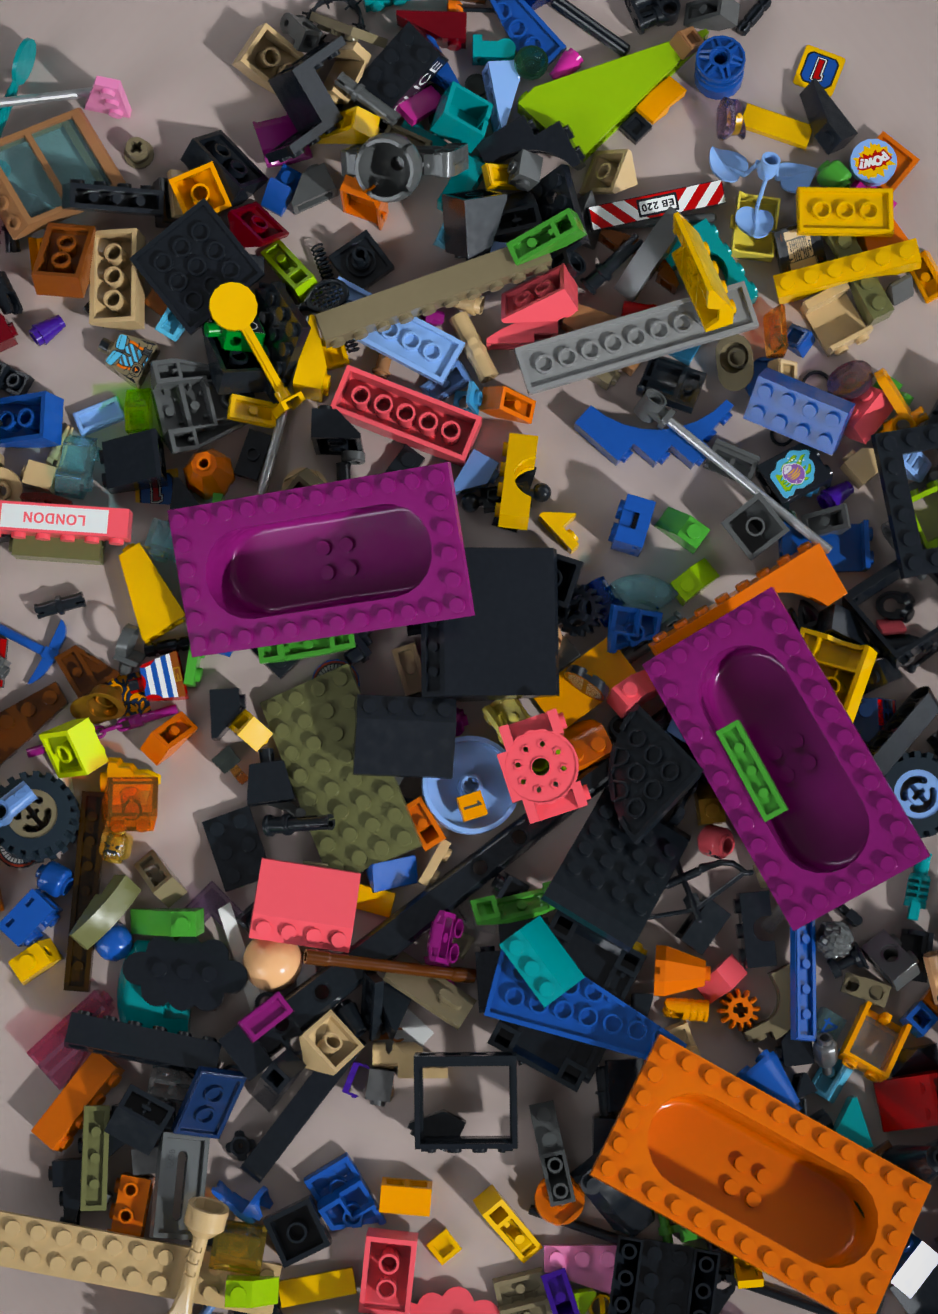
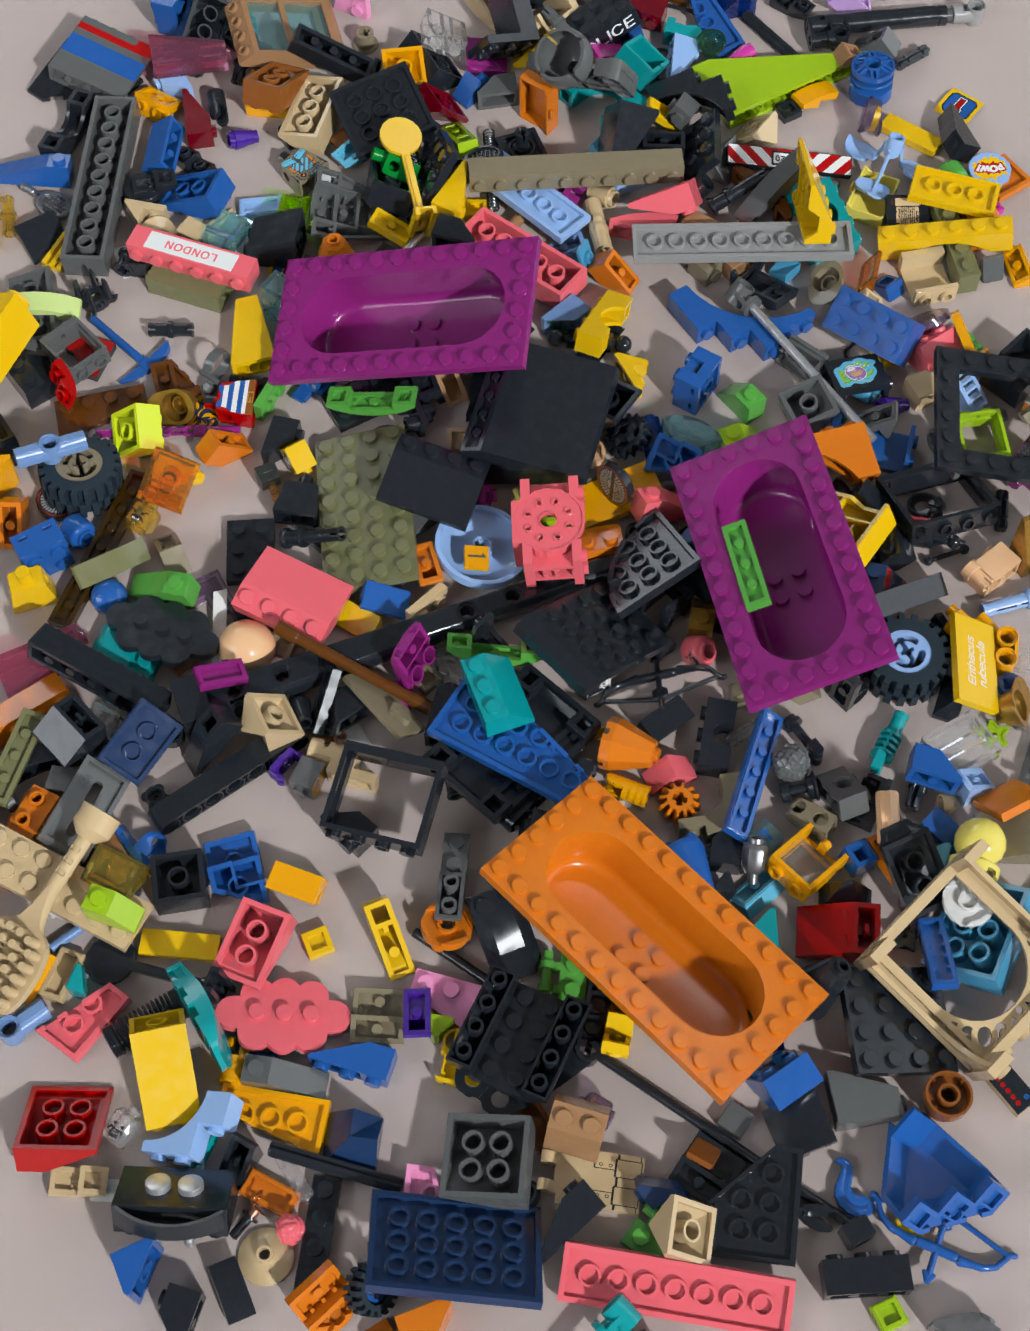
camera: 20 degrees right, 20 degrees down
(229, 132) = (443, 34): none -> clear brick
(547, 237) = (687, 145): bright green slope -> none

